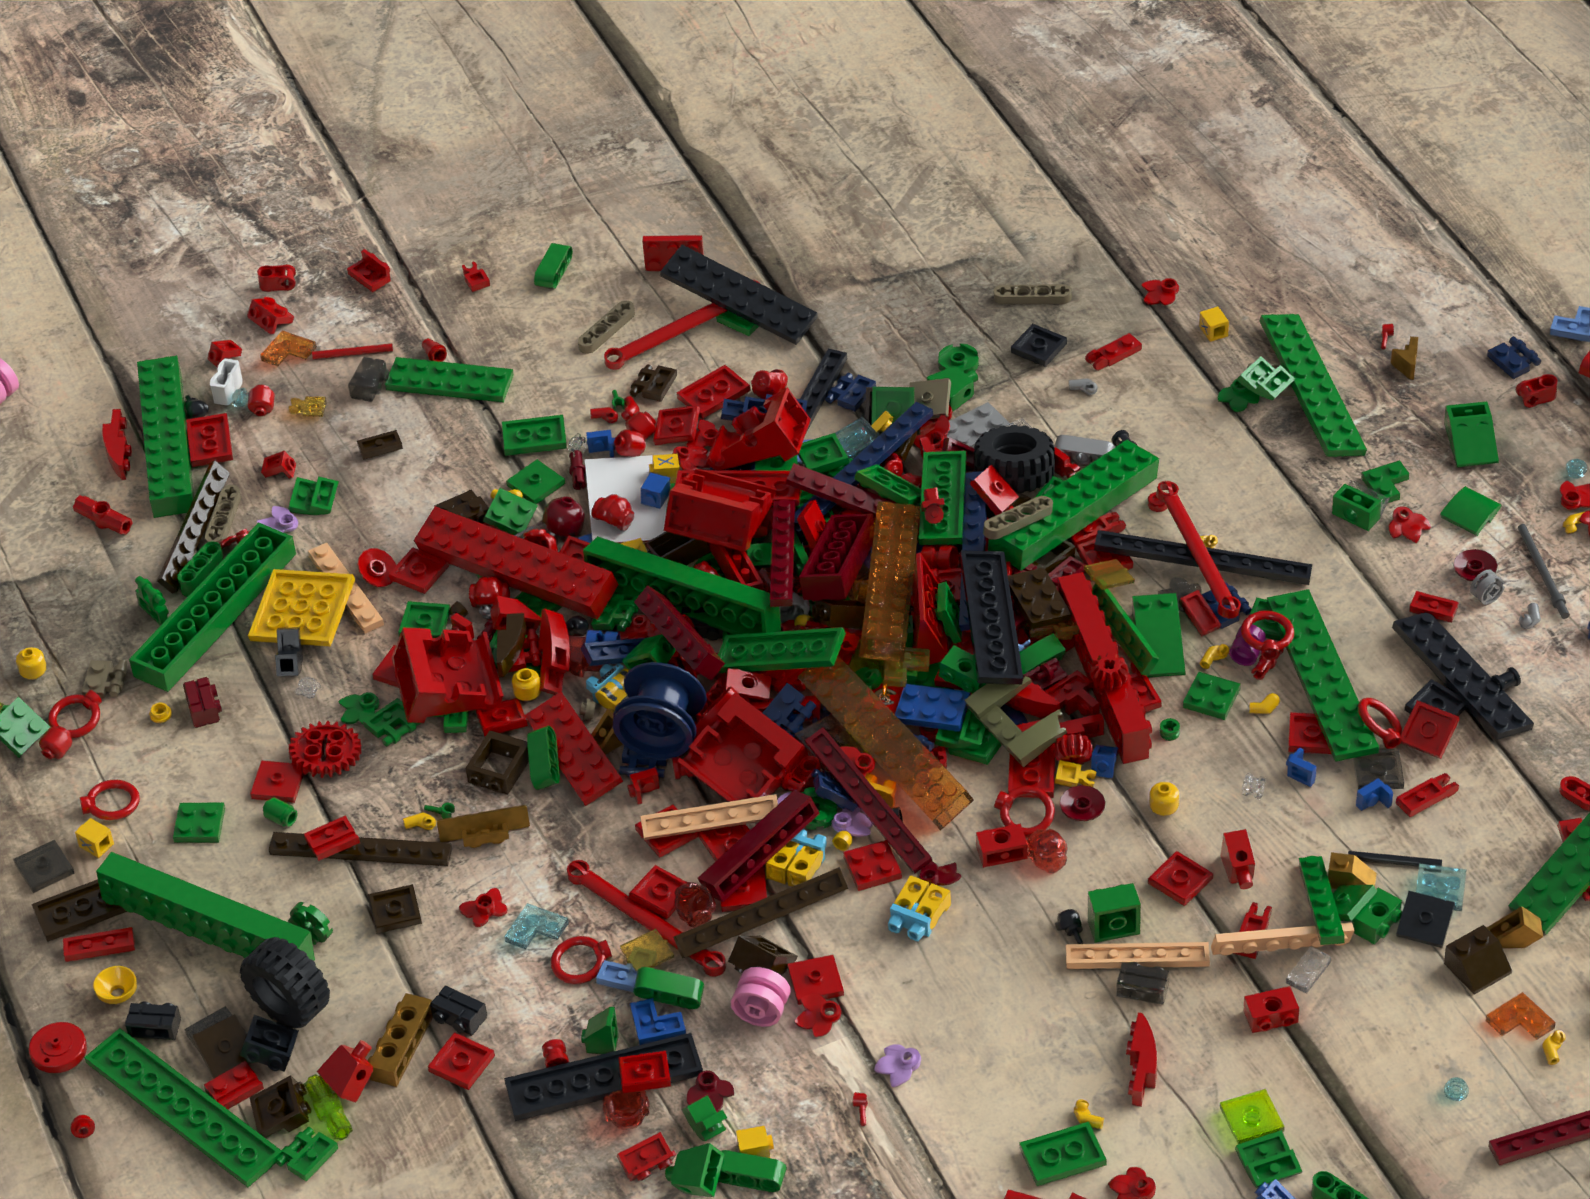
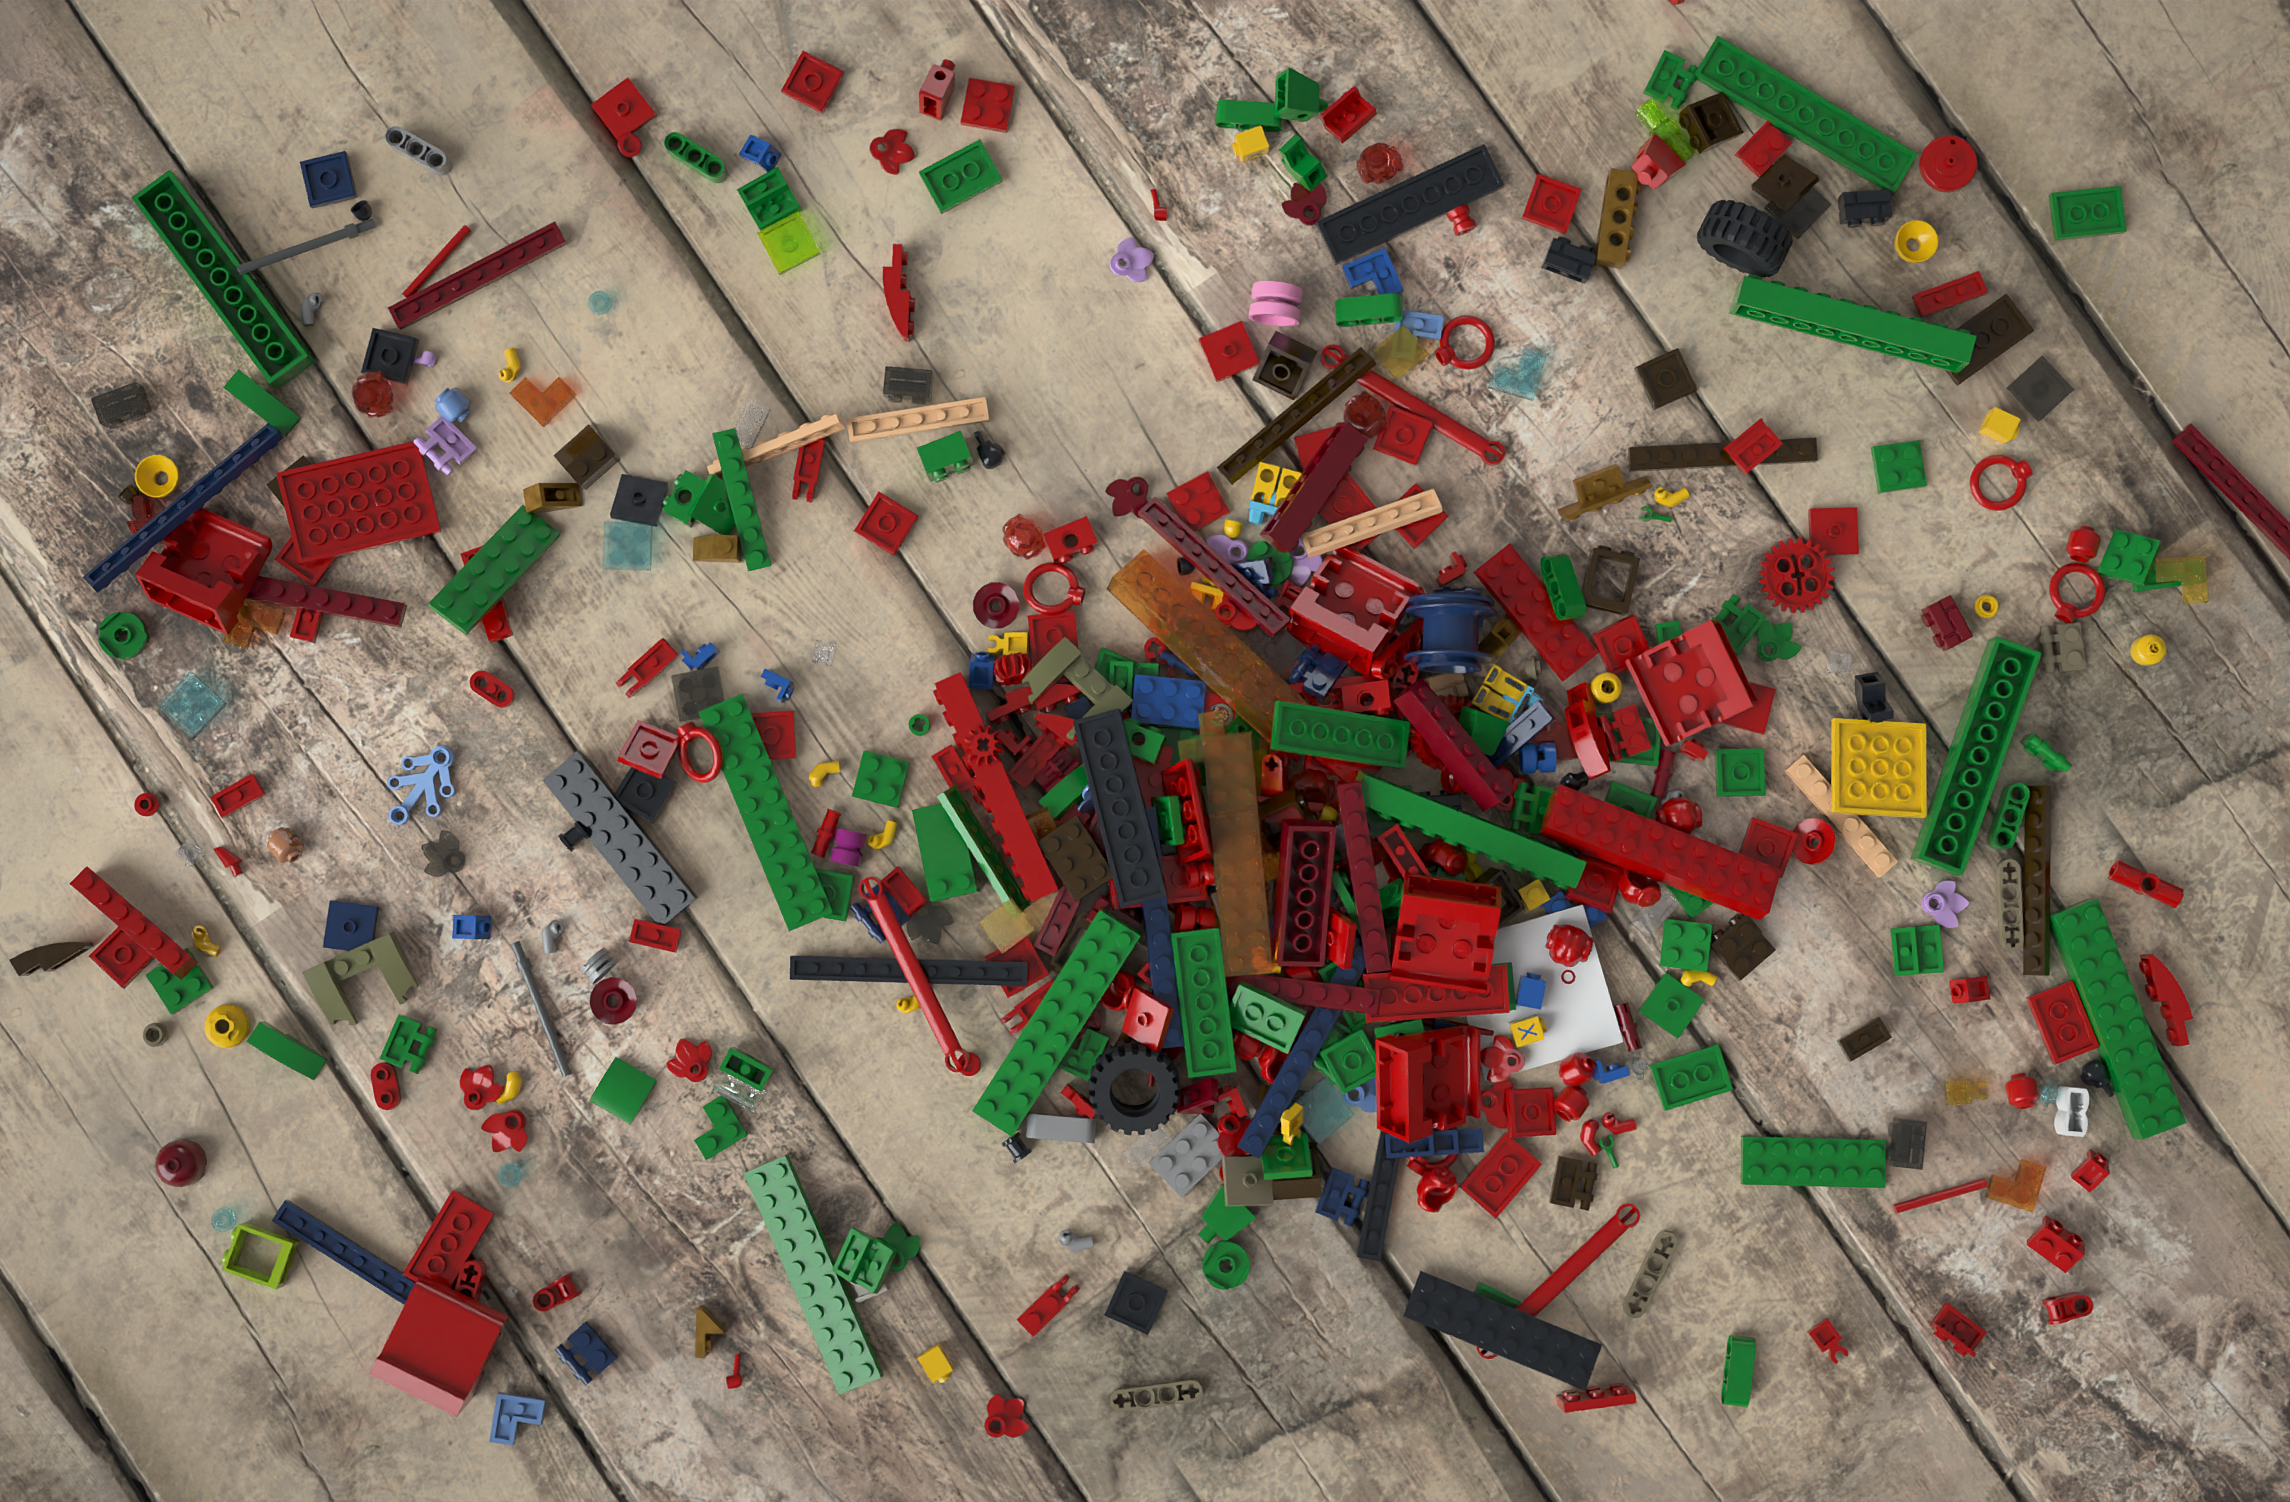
camera: 160 degrees right, 40 degrees up
(78, 1124) = (1893, 78): red plate -> none
(234, 538) = (1980, 863): red plate -> none
(269, 1043) = (1743, 184): black plate -> none
(279, 812) = (1818, 484): green brick -> none
(312, 920) = (1745, 336): green plate -> none
(434, 350) = (1843, 1204): red cone -> none
(458, 608) = (1707, 793): dark brown hinge -> none
(484, 906) = (1575, 396): red animal -> none
(504, 606) = (1645, 779): red slope -> none
(510, 642) = (1634, 720): dark brown slope -> none
(563, 516) = (1625, 941): dark red cylinder -> none
(601, 1033) = (1423, 246): green slope -> none
(644, 1072) = (1369, 200): red plate -> none
(814, 1015) = (1221, 306): red plate -> none
(918, 908) = (1141, 438): hips -> none
(932, 506) = (1210, 966): red hips -> none
(998, 527) = (1108, 952): dark tan beam -> none
(1083, 1115) = (945, 223): yellow arm -> none
(1164, 798) = (913, 627): yellow head -> none
(1238, 858) = (829, 545): red torso -> none
(1268, 648) = (820, 827): red piece -> none
(1271, 1009) = (794, 369): red brick -> none
(1395, 859) = (674, 580): black bar -> none
(1471, 434) = (626, 1204): green slope -> none

